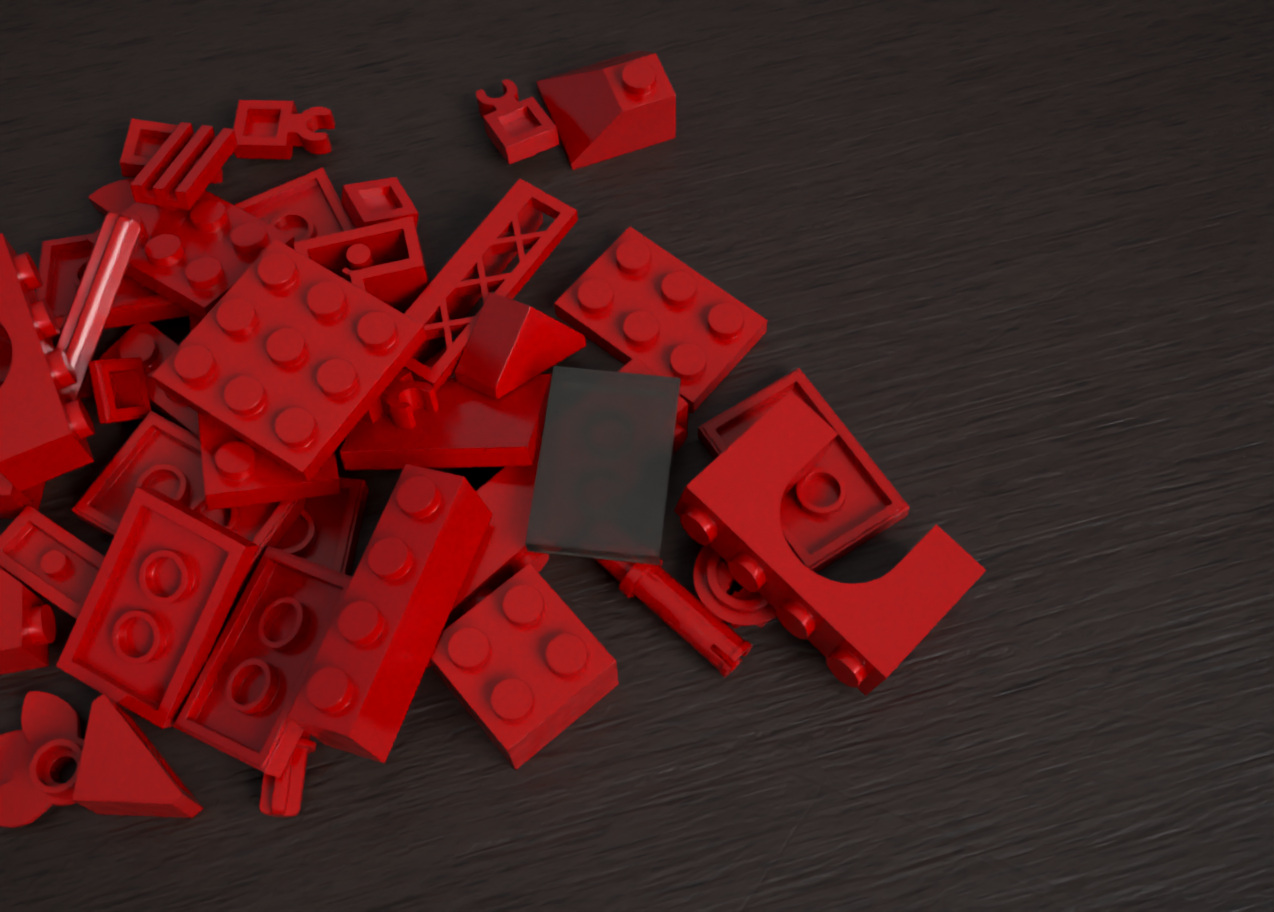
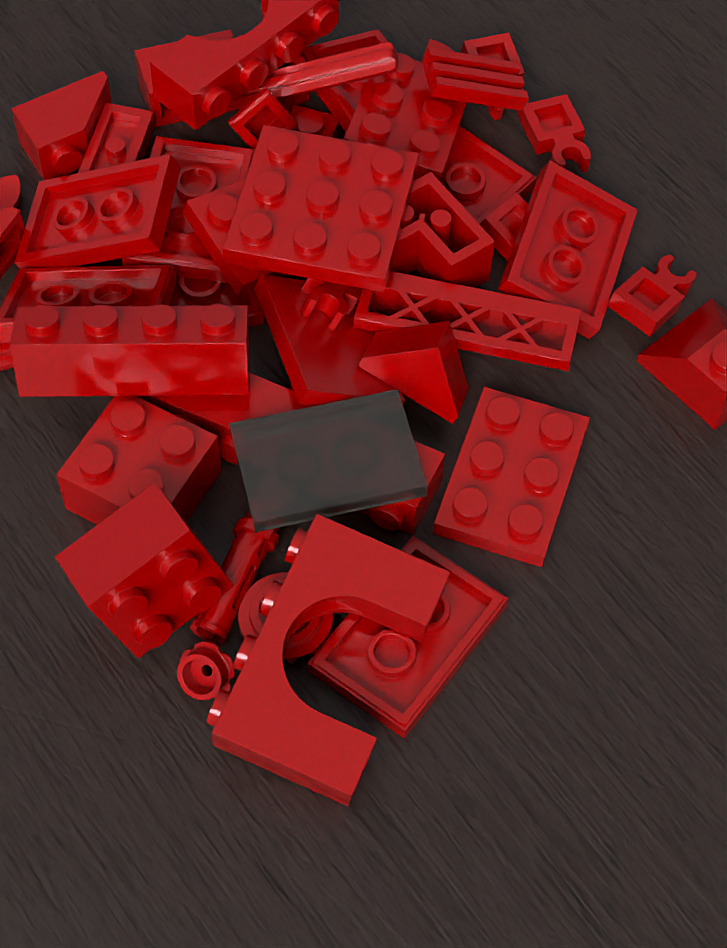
camera: 65 degrees right, 5 degrees down
(428, 166) = (569, 246): none -> red plate
(675, 686) = (144, 571): none -> red brick
(785, 674) = (194, 677): none -> red plate

